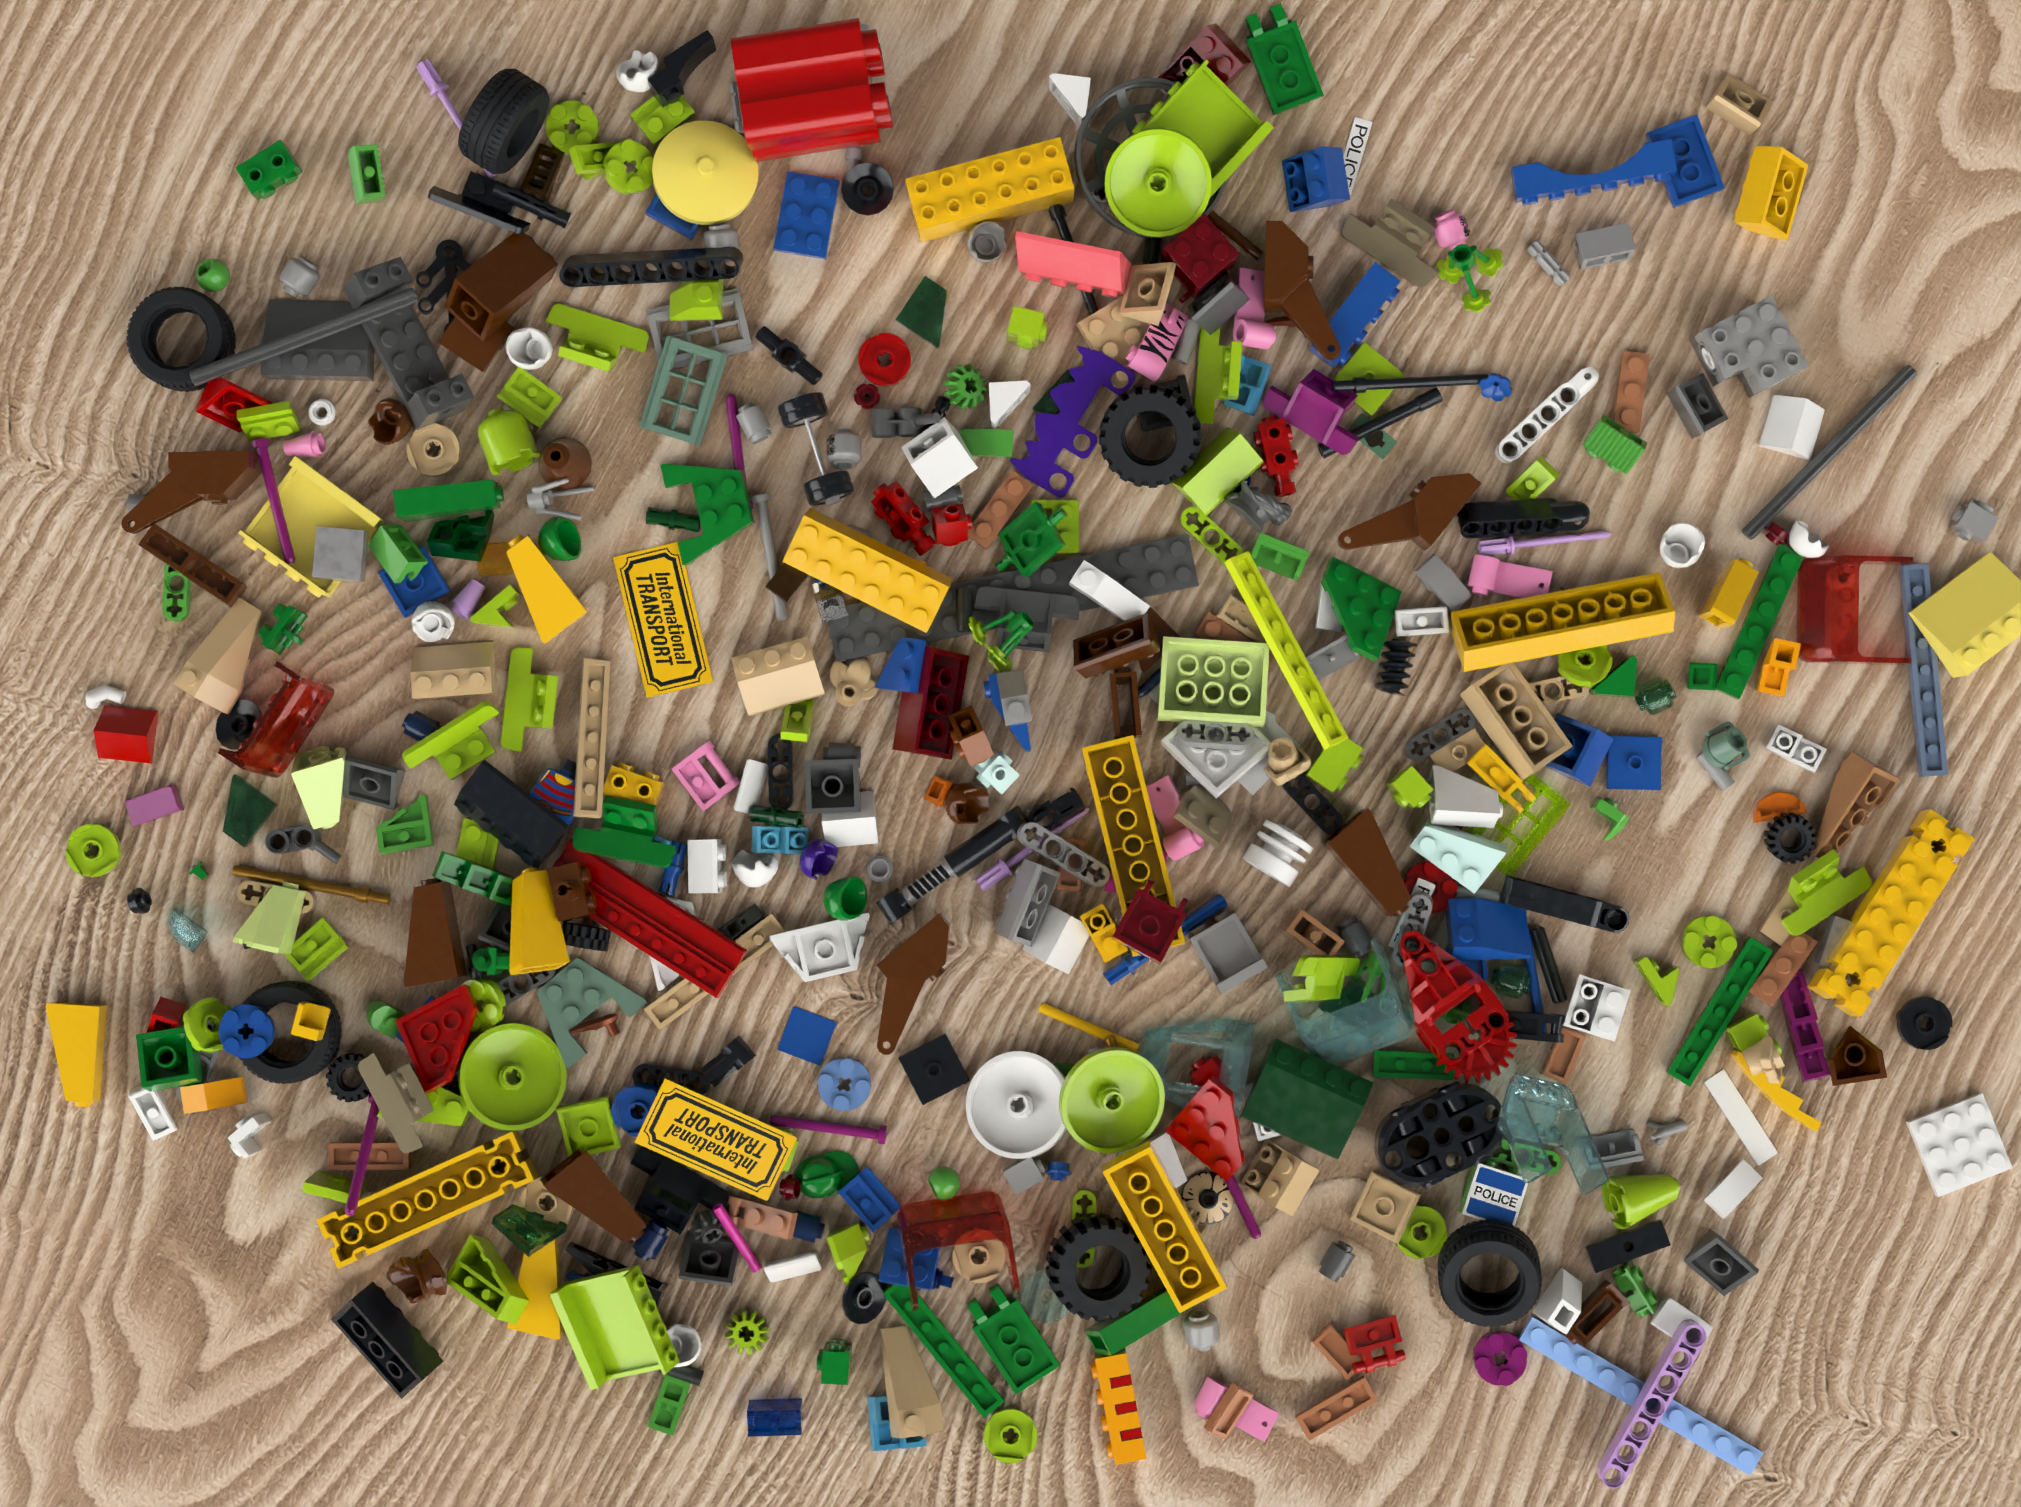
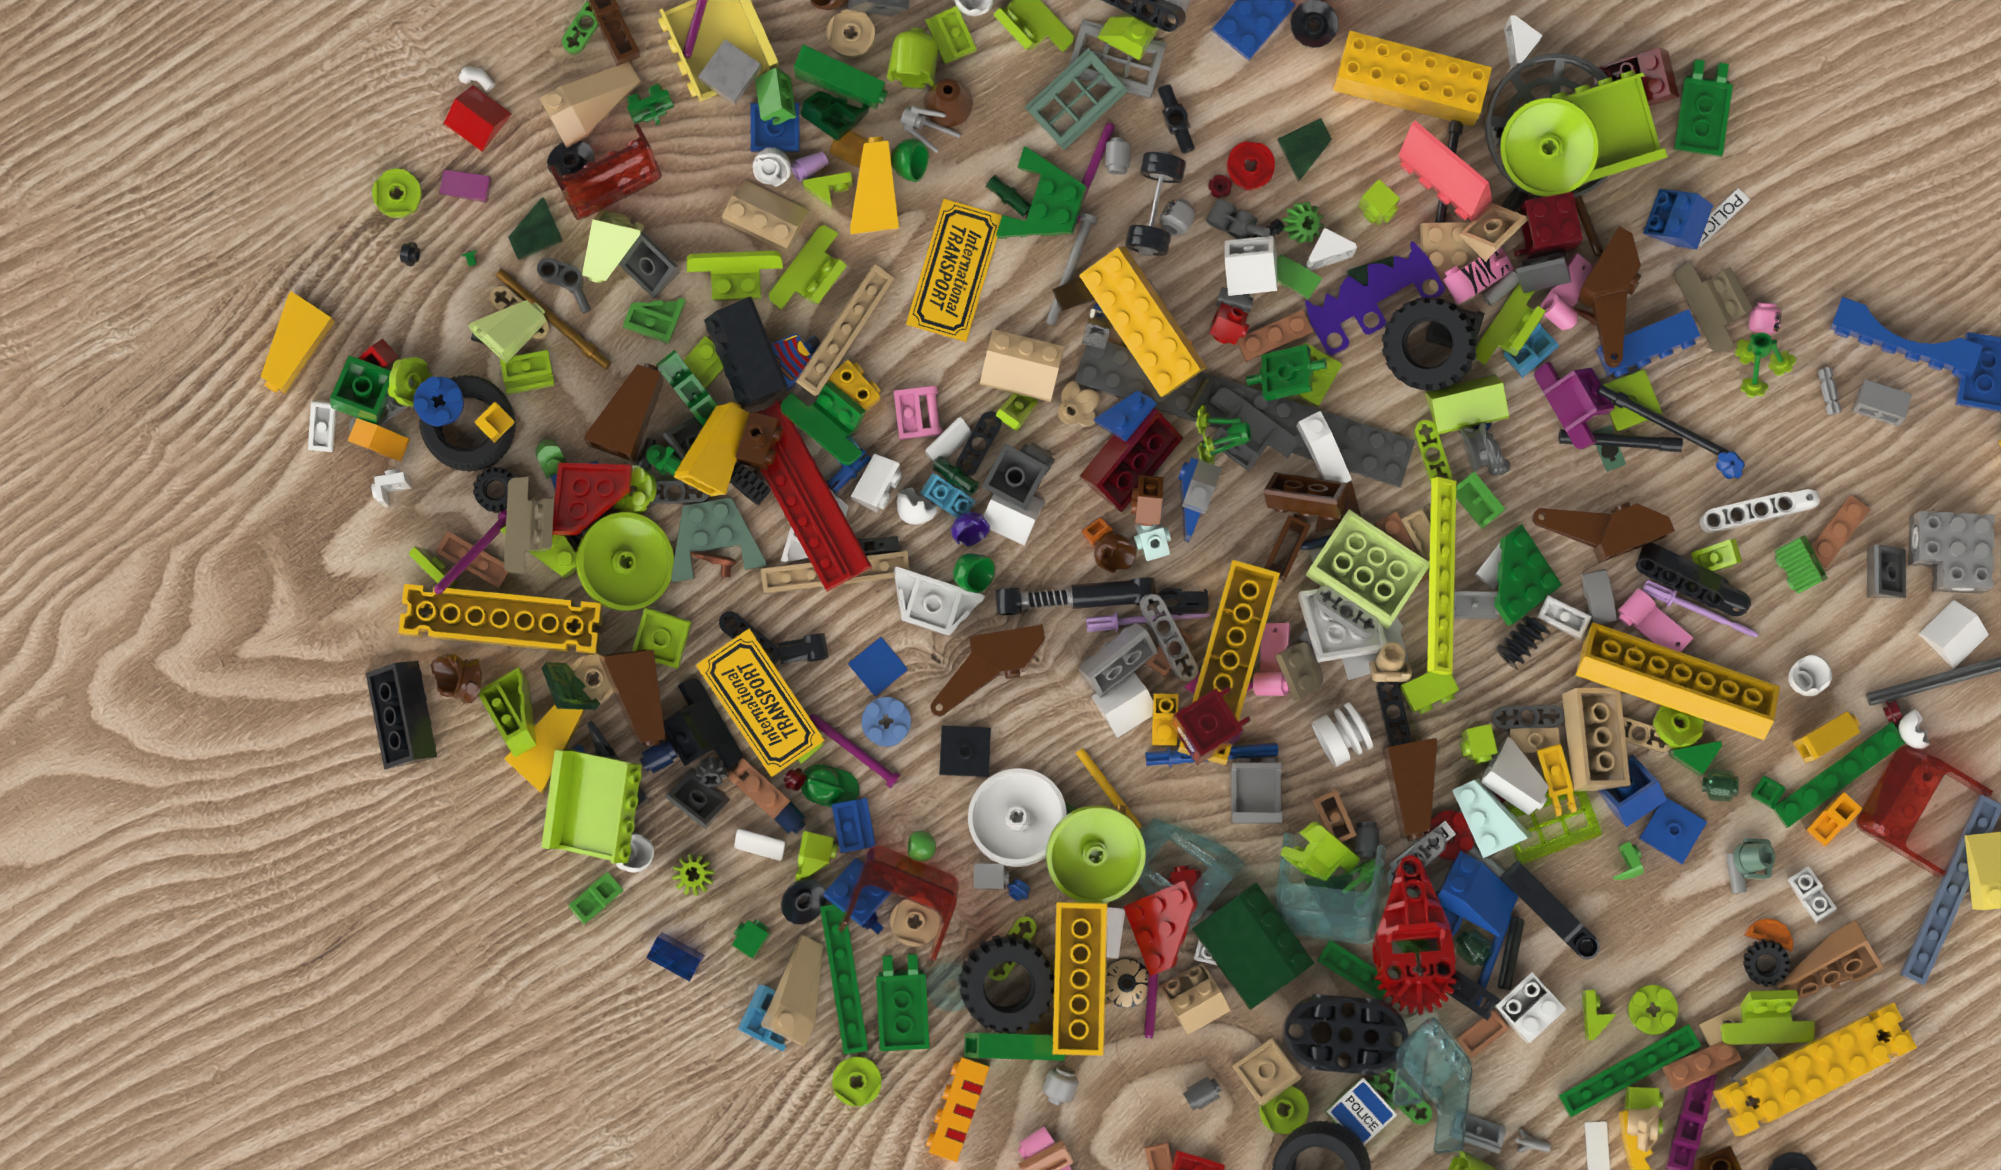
camera: 25 degrees right, 5 degrees down
(185, 930) = (432, 299): clear light blue brick -> none
(419, 725) = (712, 241): dark blue brick -> none
(627, 1099) = (704, 633): blue plate -> none
(687, 1374) = (622, 878): pearl dark grey axle -> none
(737, 1238) = (729, 794): dark pink piece -> none
(879, 868) = (1014, 566): light grey plate -> none
(903, 516) = (1194, 296): red brick -> none
(986, 242) = (1386, 118): light grey hair -> none
(1277, 446) = (1526, 411): red brick -> none

